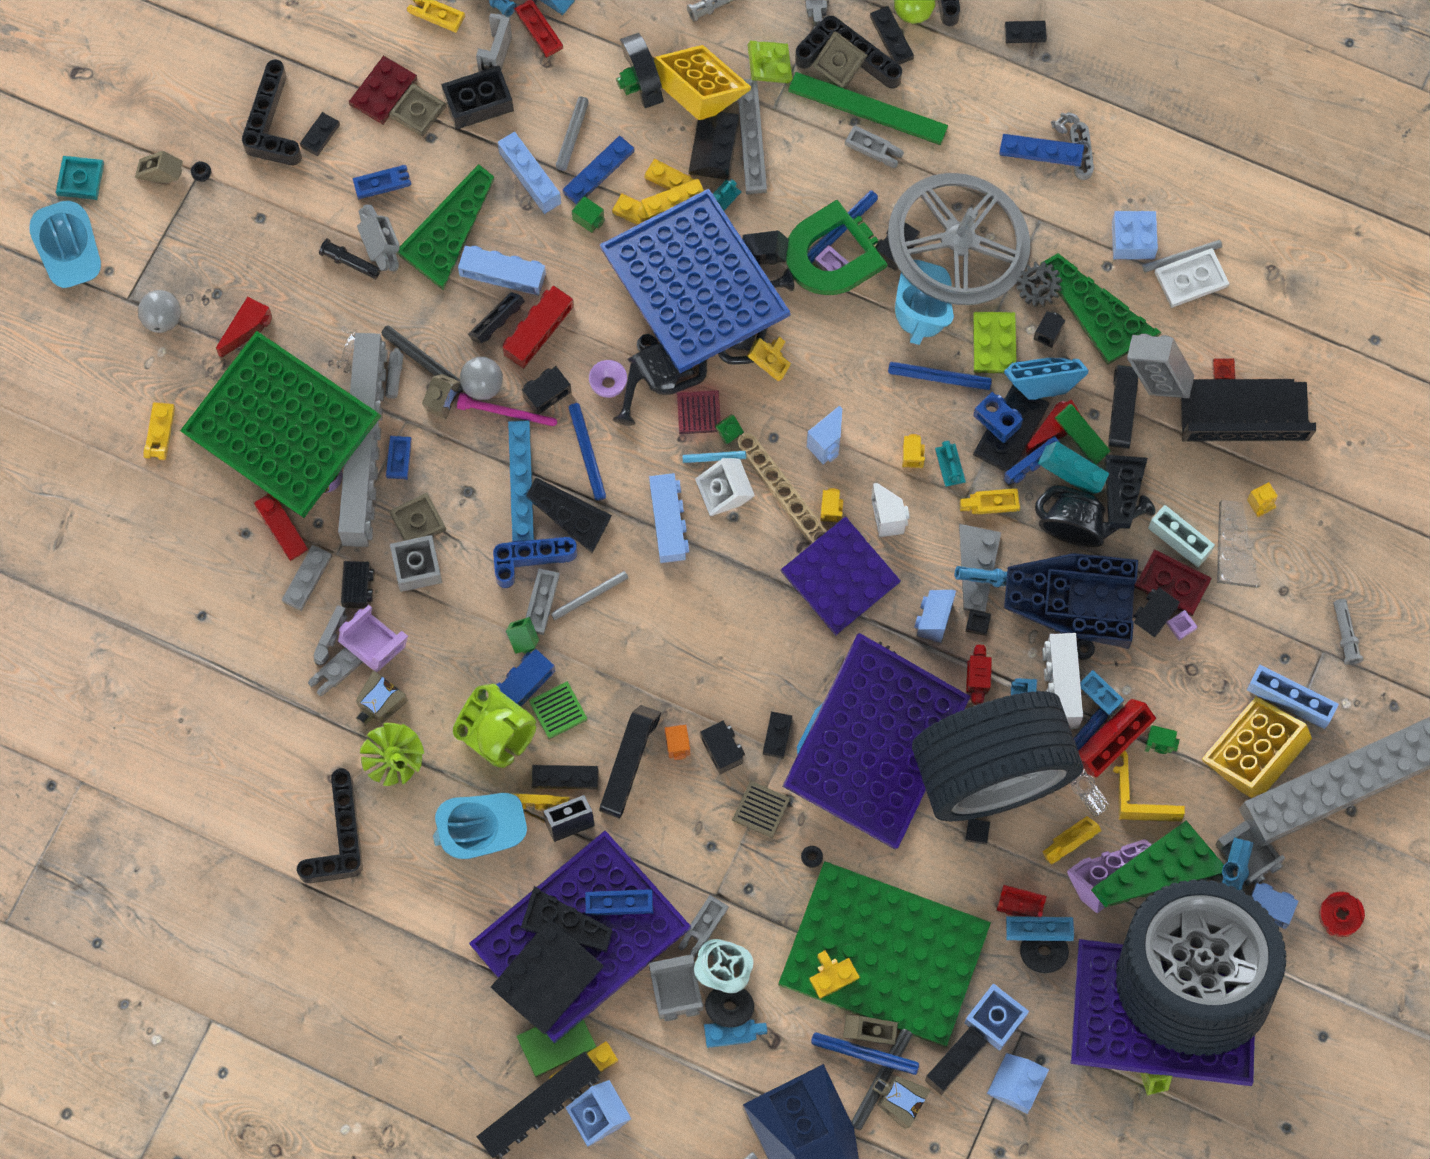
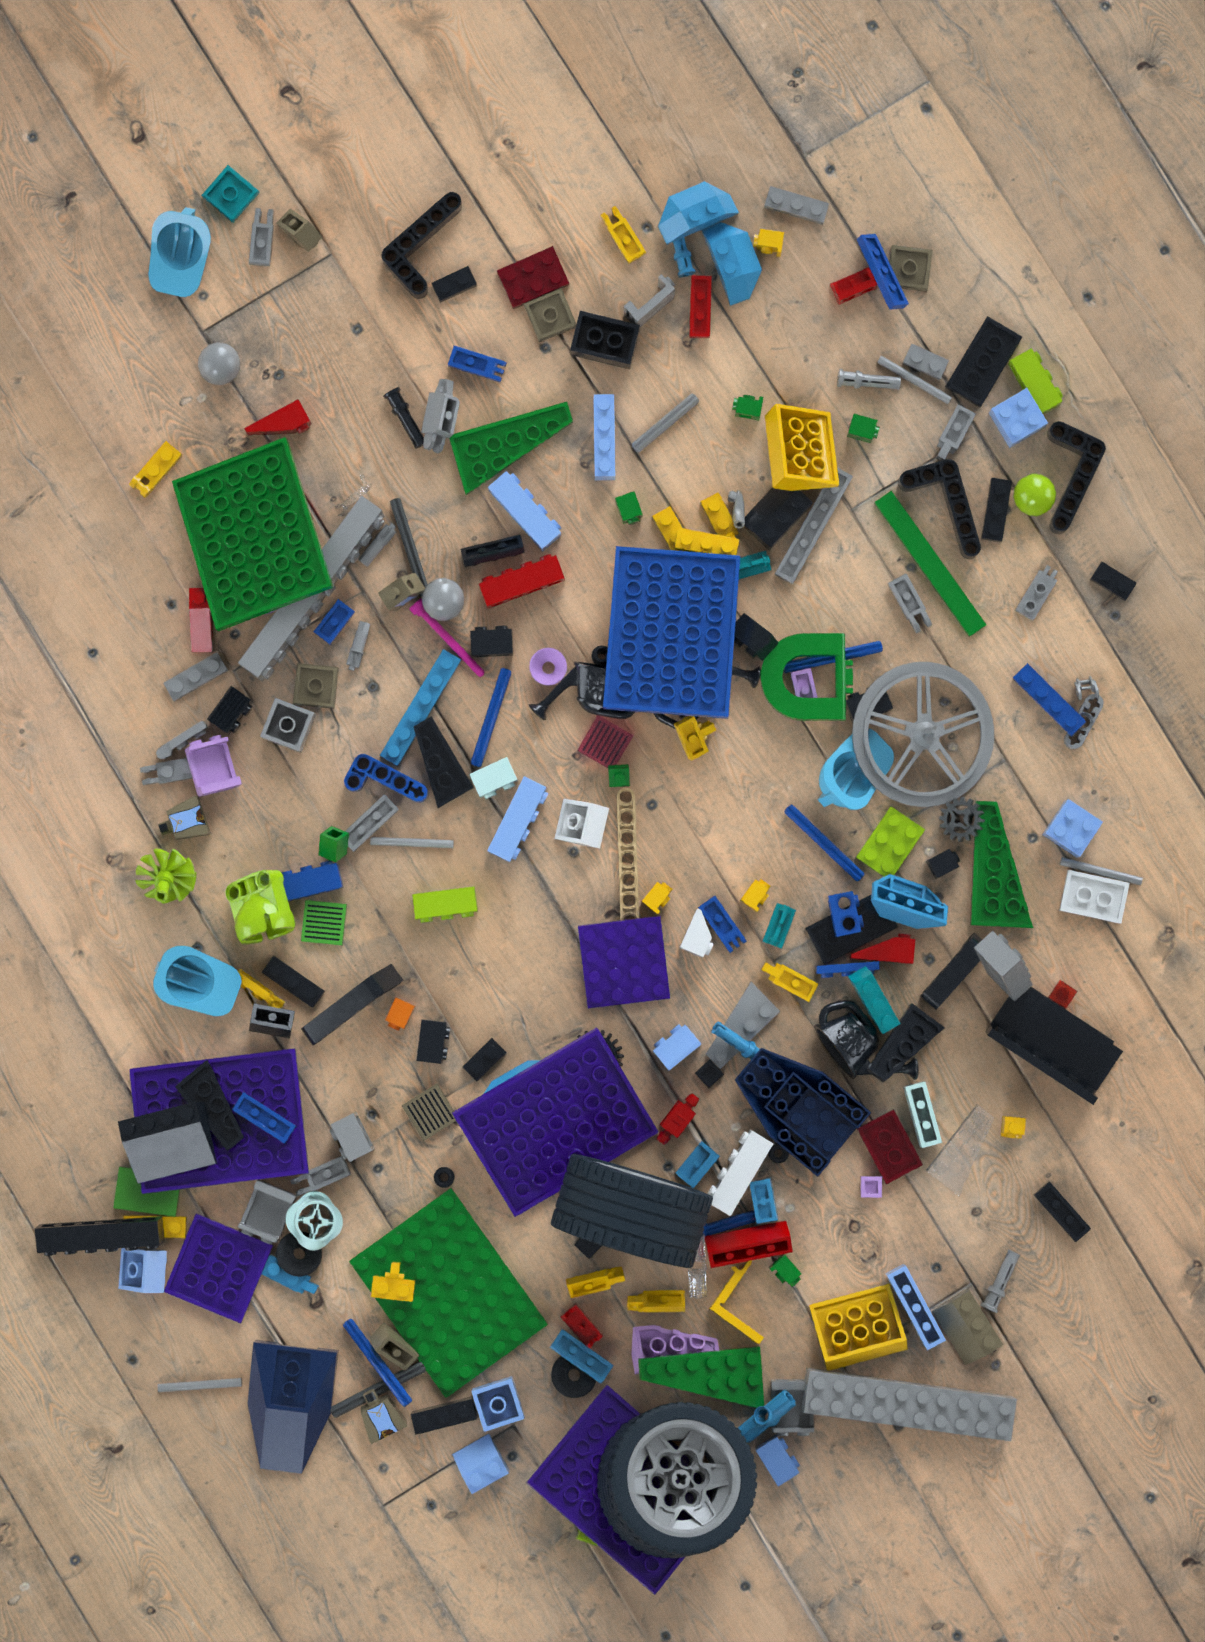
camera: 35 degrees right, 15 degrees up
(131, 196) = (261, 239): none -> light grey hinge
(201, 166) = (333, 248): black plate -> none
(344, 833) = (87, 913): black beam -> none
(434, 469) = (356, 651): none -> light grey piece
(598, 170) = (665, 471): blue plate -> none
(624, 497) = (494, 777): none -> light aqua brick
(644, 69) = (759, 406): black arch -> none
(653, 625) = (445, 904): none -> lime brick
(666, 1066) = (218, 1268): none -> dark purple plate
(679, 160) = (738, 508): none -> light grey arm
(706, 457) = (590, 791): medium azure bar -> none
(708, 870) = (352, 1137): none -> light grey brick
(737, 38) = (863, 428): none -> green brick
(769, 62) = (874, 467): lime hinge -> none
(825, 436) = (692, 838): light blue slope -> none
(839, 60) = (934, 506): dark tan tile -> none
(908, 493) = (721, 923): none -> blue hinge
(971, 78) = (1037, 593): none -> light grey hinge
(1005, 859) = (594, 1281): none -> yellow hinge
(1082, 434) = (903, 975): green tile -> none
(1156, 611) = (856, 1164): black brick -> none
(1348, 903) = (832, 1515): red plate -> none
(1350, 686) = (967, 1327): none -> dark tan slope
(1354, 542) = (1062, 1211): none -> black plate

